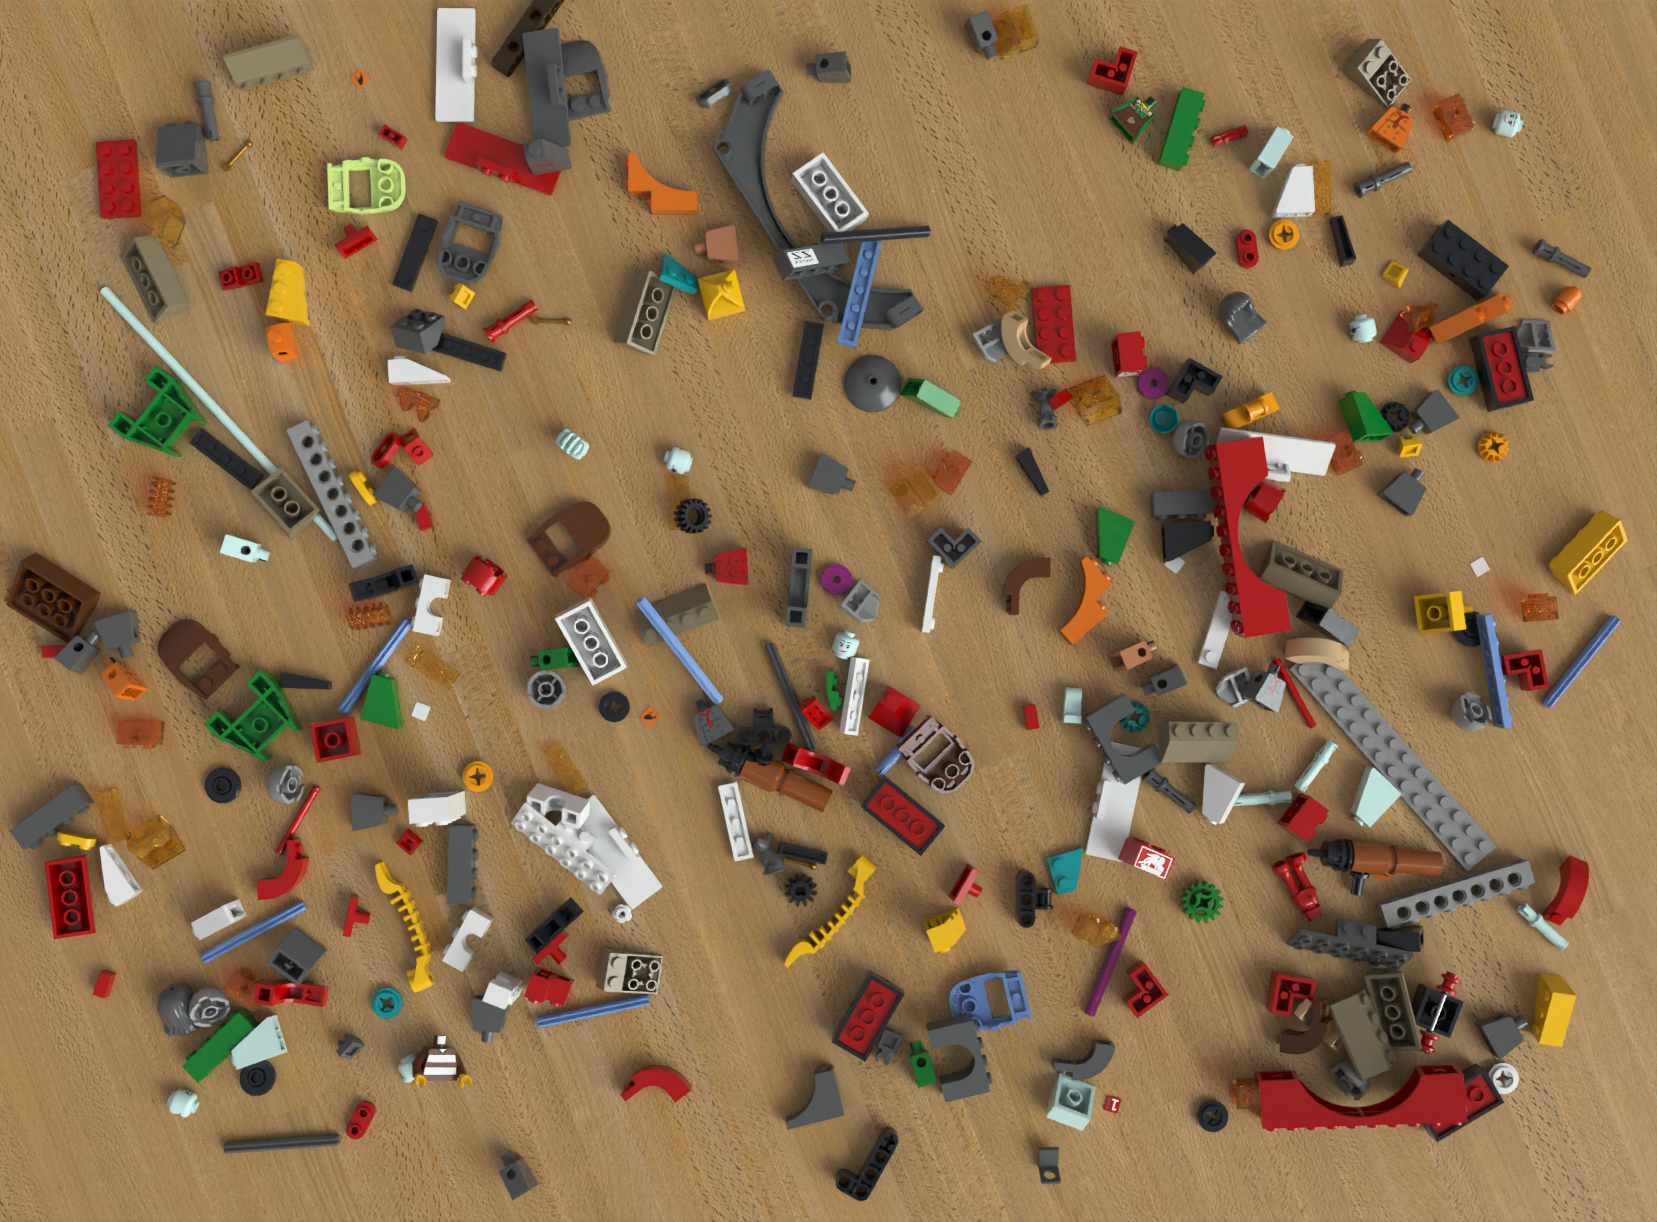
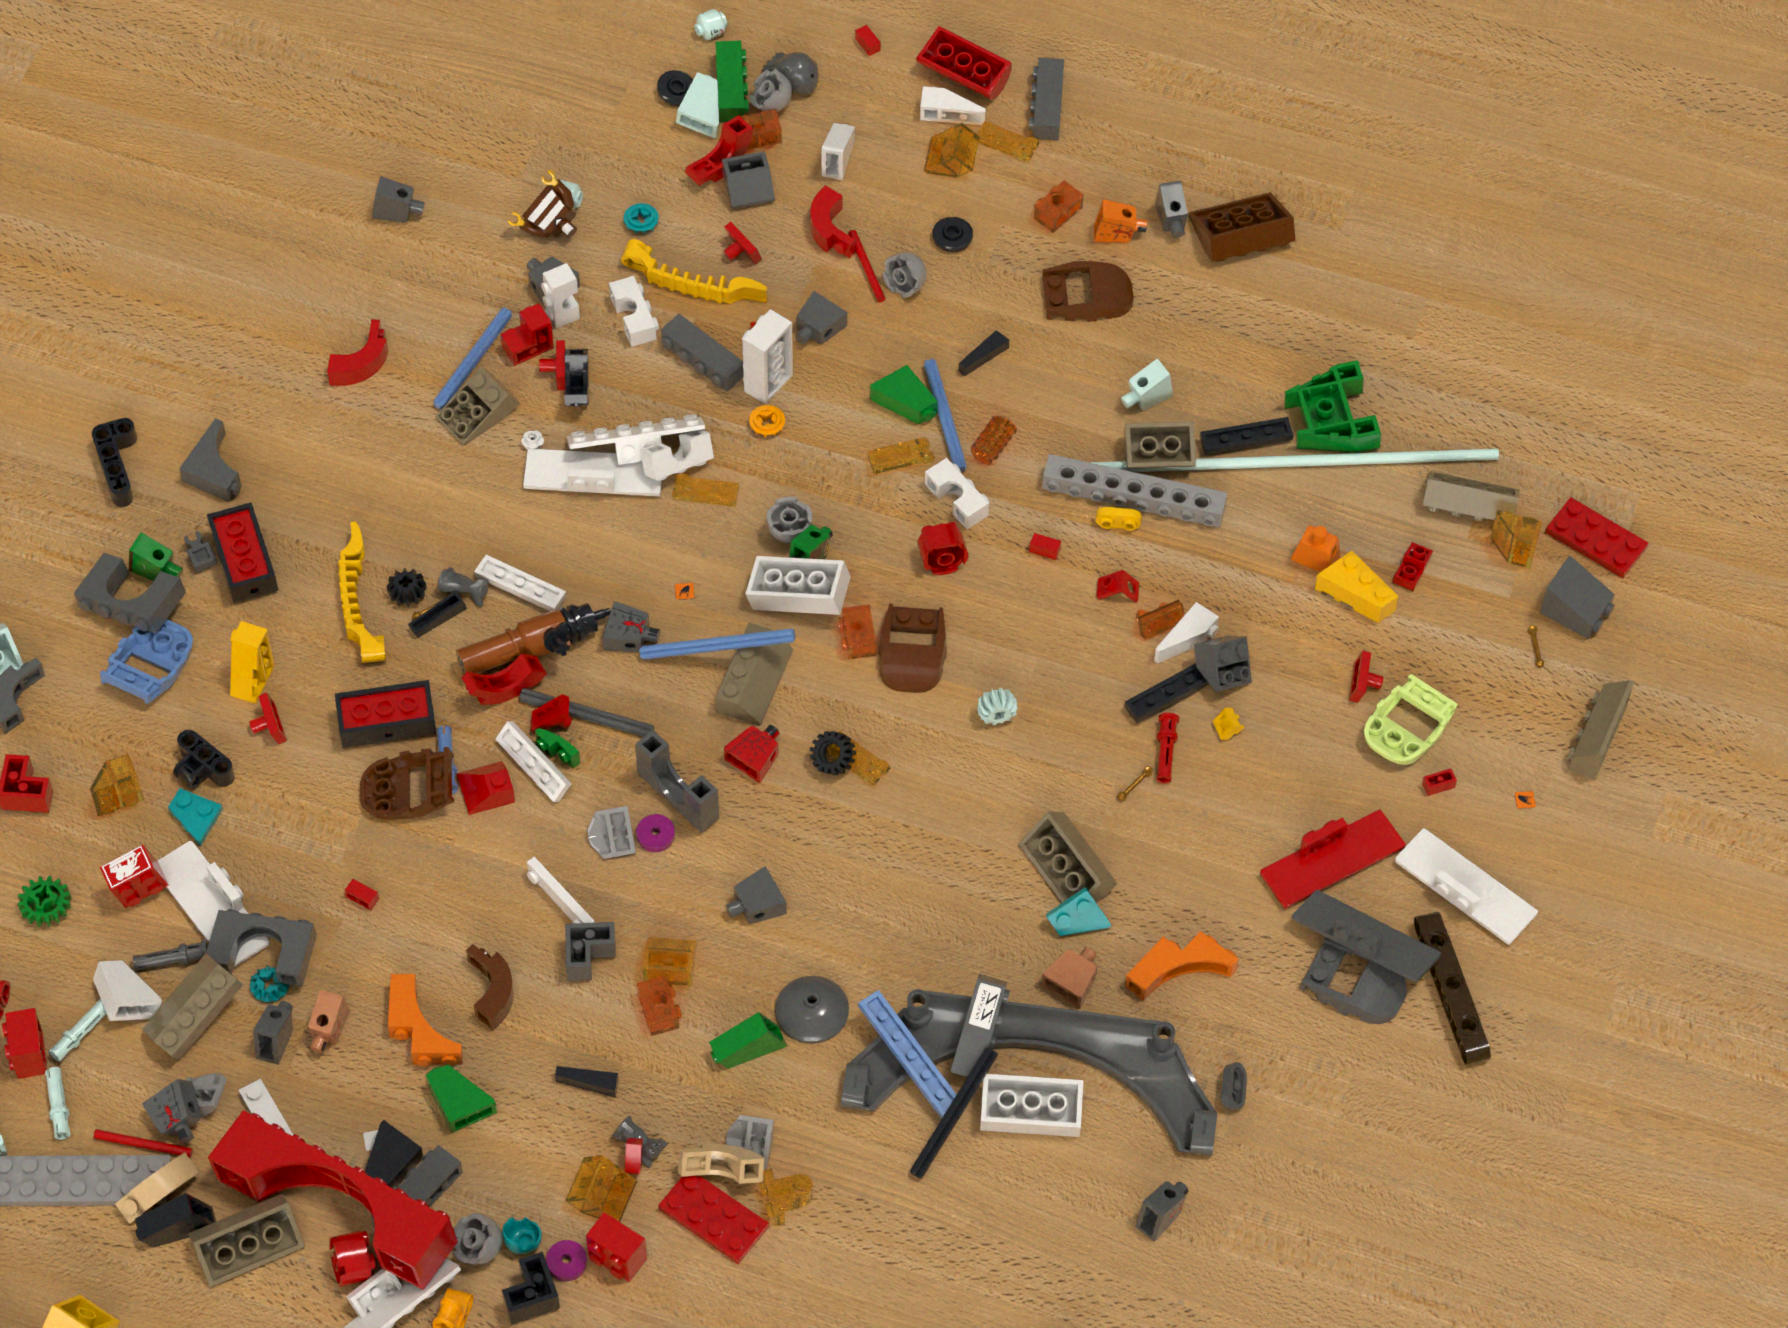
camera: 135 degrees right, 30 degrees down
(51, 651) = (1194, 196): red piece -> none
(68, 838) = (1011, 102): yellow plate -> none
(119, 632) = (1163, 251): dark grey torso -> none
(161, 497) = (1256, 363): clear orange piece -> none
(206, 102) = (1611, 654): dark grey pin -> none
(253, 932) = (802, 169): medium blue axle -> none
(261, 721) = (977, 294): green wedge -> none
(282, 1143) = (603, 67): dark grey axle -> none
(335, 739) = (907, 336): red brick -> none
(350, 1047) = (632, 165): dark grey tile -> none
(359, 1120) = (561, 129): red plate -> none
(383, 584) = (1013, 468): black arch -> none
(386, 450) = (1136, 560): red plate -> none
(399, 491) = (1086, 541): dark grey torso -> none
(415, 252) = (1307, 720): black plate -> none
(420, 711) = (870, 422): white sticker -> none
(463, 263) = (1259, 749): dark grey slope -> none
(546, 157) = (1295, 879): dark grey slope -> none
(609, 714) = (717, 560): black gear -> none
(678, 460) = (898, 783): light aqua head -> none
(721, 294) = (1023, 938): yellow piece -> none
(760, 724) = (584, 671): black piece -> none
(808, 360) = (885, 963): black plate -> none
(845, 644) = (587, 789): light aqua head -> none
(1072, 705) = (334, 934): light aqua leg -> none
(1109, 963) = (75, 785): magenta axle -> none

